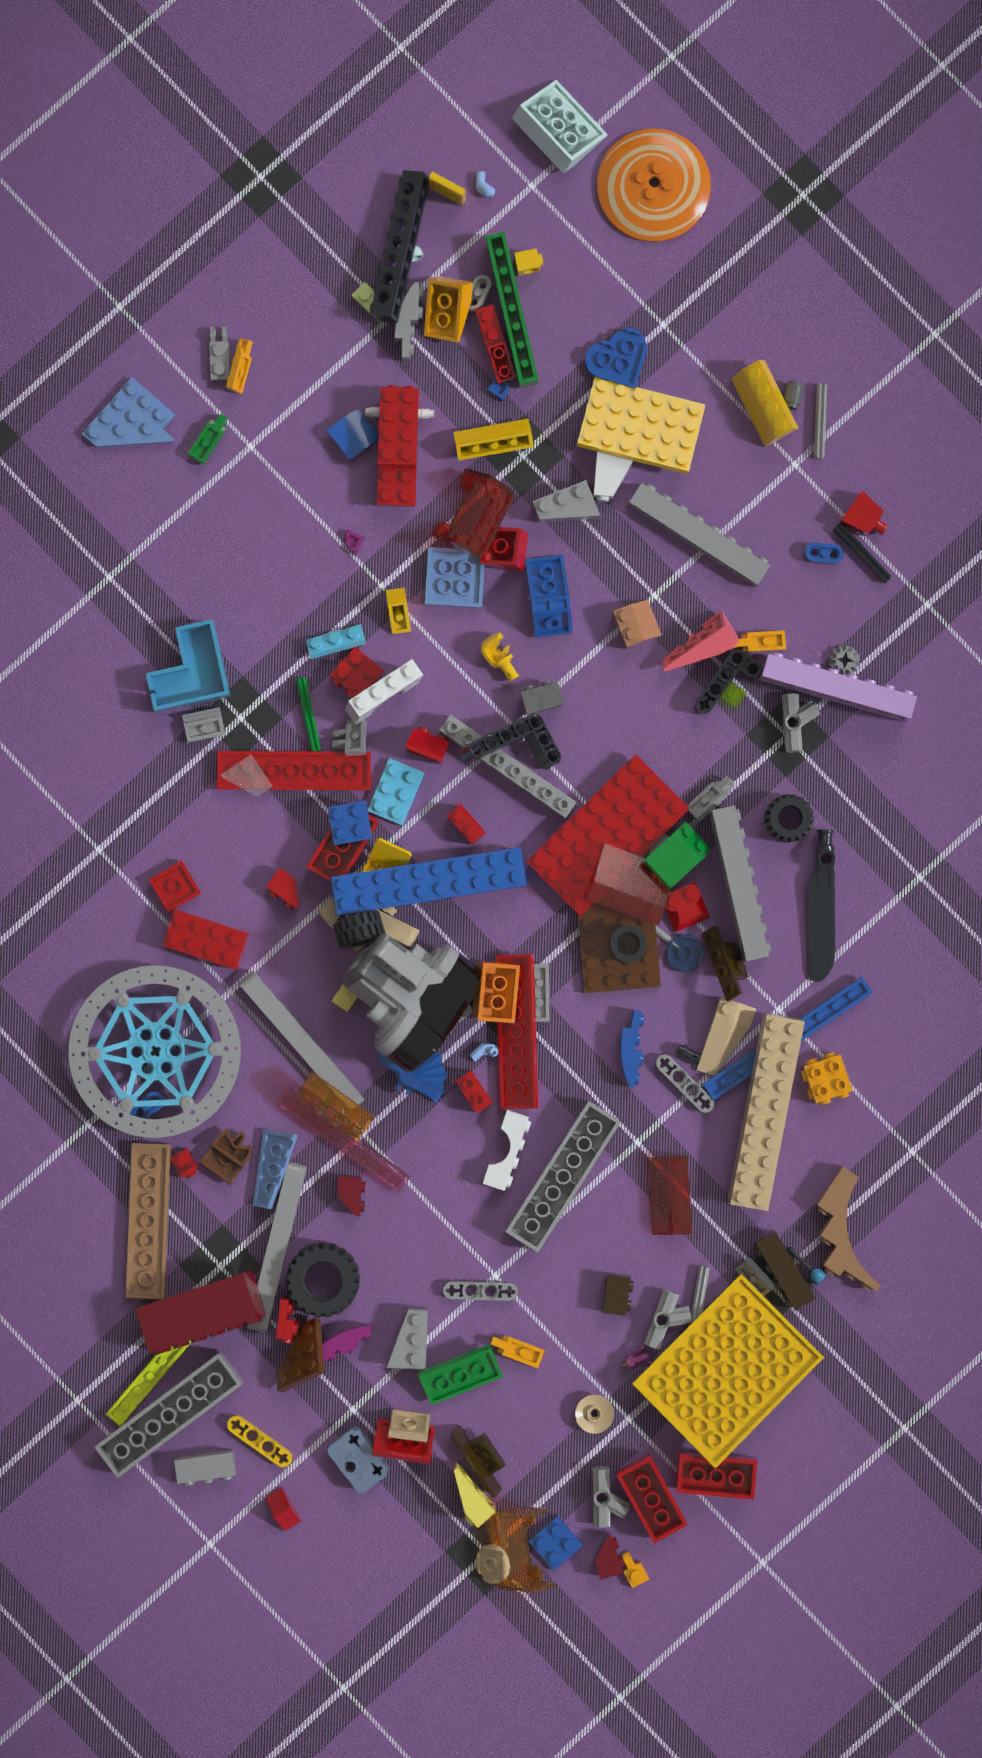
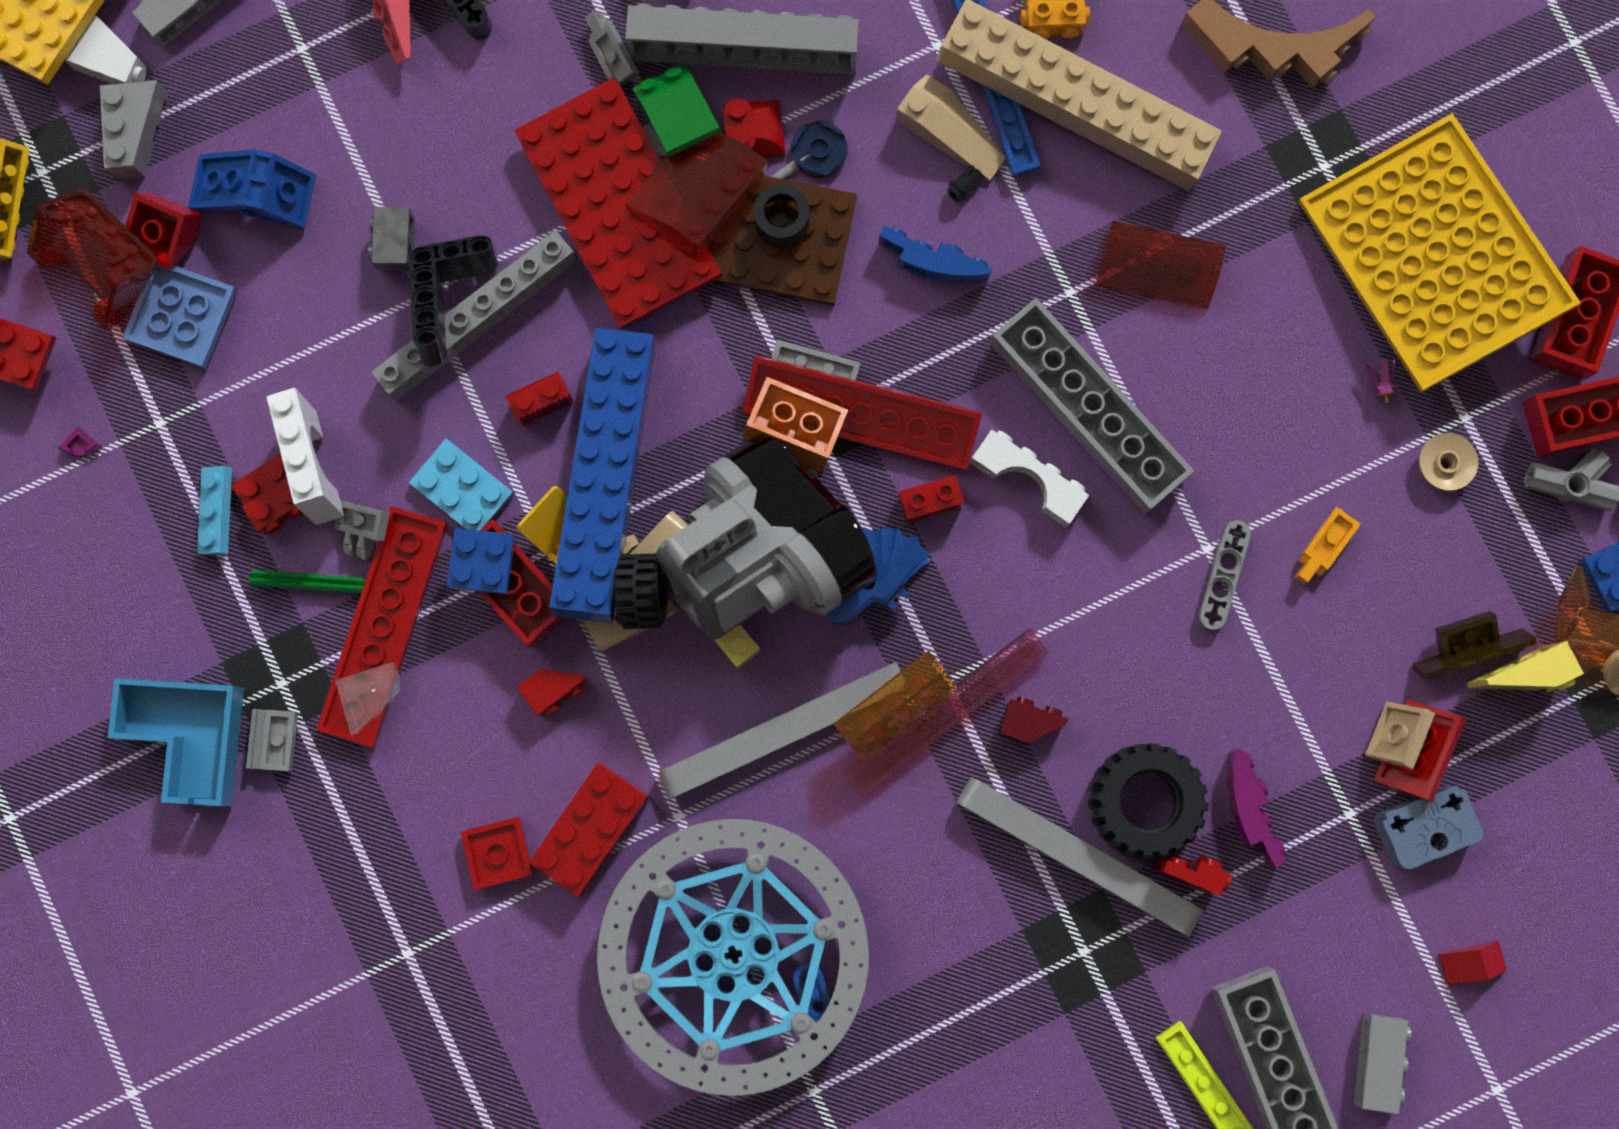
camera: 70 degrees left, 5 degrees down
(148, 1221) = (986, 1041): medium nougat plate -> none
(185, 1164) = (916, 960): red bracket -> none
(200, 1313) = (1150, 1002): dark red brick -> none
(227, 1156) = (922, 892): reddish brown plate -> none
(261, 1438) = (1364, 971): yellow beam -> none
(273, 1161) = (951, 825): medium blue wing -> none
(303, 1357) = (1259, 865): reddish brown plate -> none
(398, 610) = (199, 407): yellow slope -> none
(411, 1342) = (1275, 696): light grey wedge -> none
(427, 745) = (408, 420): red slope -> none
(460, 1374) = (1341, 638): green piece -> none
(484, 1049) = (874, 467): light blue arm -> none
(498, 658) = (317, 285): yellow piece -> none
(616, 1294) = (1282, 380): dark brown brick -> none
(636, 623) = (331, 83): nougat slope -> none
(674, 1315) = (1336, 310): light grey piece -> none
(687, 1080) = (1006, 204): light grey beam -> none
(700, 1292) = (1310, 265): light grey axle -> none
(726, 962) = (850, 91): dark brown bracket -> none
(755, 1276) = (1308, 179): flat silver plate -> none
(784, 1269) = (1310, 138): dark brown brick -> none
(816, 1275) = (1329, 97): hinge -> none

